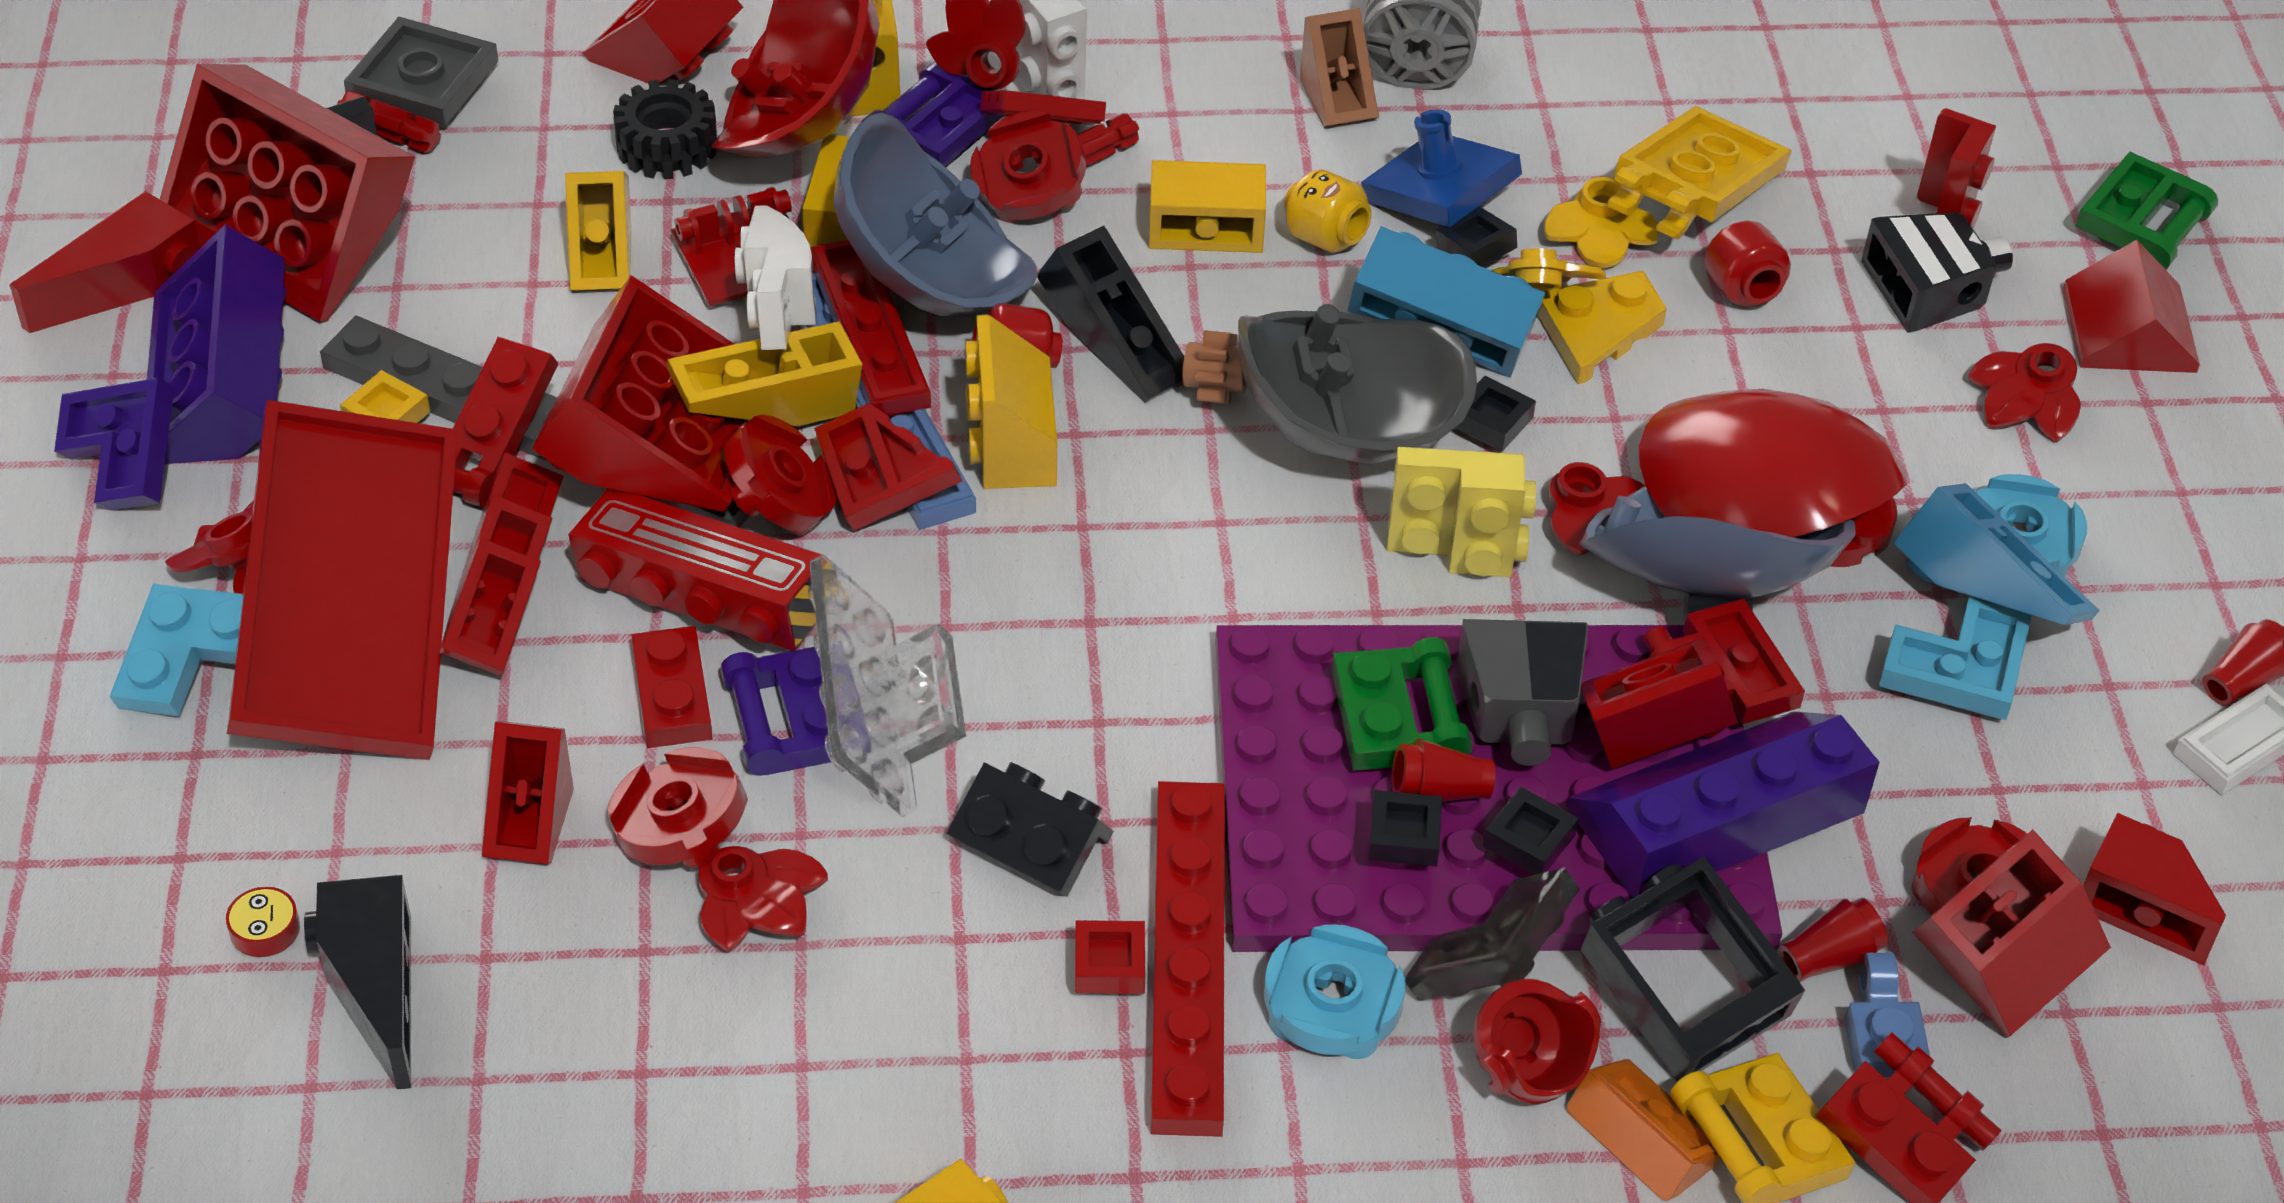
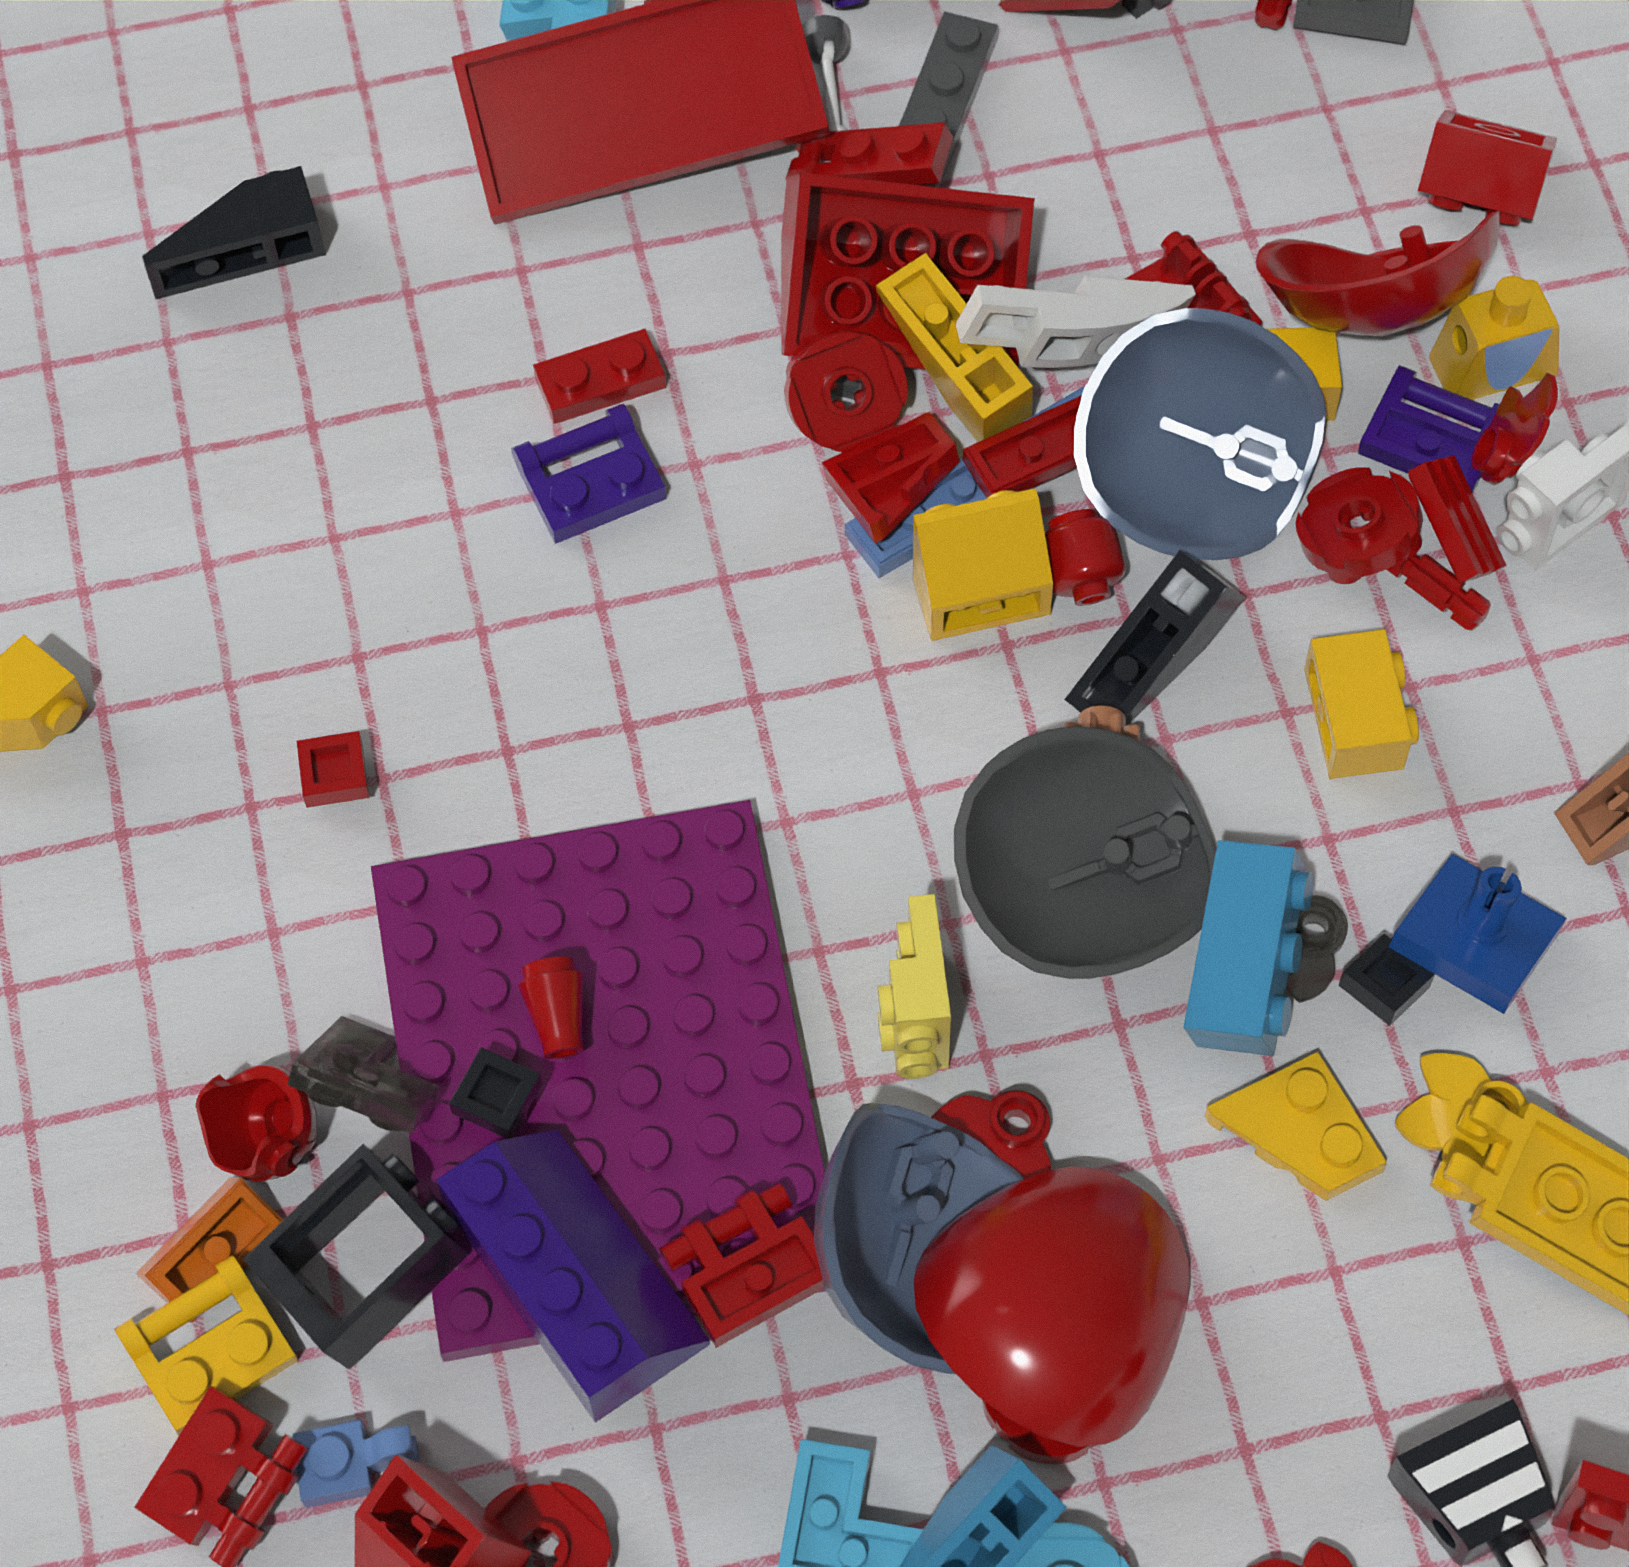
camera: 85 degrees right, 15 degrees up
(262, 921) = (296, 147): tile -> none
(388, 398) = (882, 78): yellow plate -> none
(501, 565) = (682, 210): red slope -> none
(526, 792) = (438, 294): red slope -> none
(598, 229) = (1164, 177): yellow slope -> none
(665, 150) = (1335, 174): black tyre -> none
(689, 832) = (418, 420): red plate -> none
(696, 567) = (714, 361): red brick -> none
(761, 896) = (362, 489): red plate -> none
(881, 697) = (595, 516): clear bracket -> none
(1027, 828) = (476, 683): black bracket -> none
(1189, 961) = (350, 836): red plate -> none
(1327, 211) = (1379, 820): yellow head -> none
(1328, 1024) = (300, 931): medium azure plate -> none
(1378, 706) = (646, 946): green plate -> none
(1405, 828) = (483, 981): black plate -> none
(1497, 414) = (1111, 1024): black plate -> none
(1522, 682) = (679, 1069): dark grey torso -> none
(1546, 272) = (1322, 1034): yellow plate -> none
(1659, 703) = (670, 1184): red slope -> none
(1747, 263) = (1418, 1271): red head -> none
(1836, 940) = (438, 1407): red cone -> none

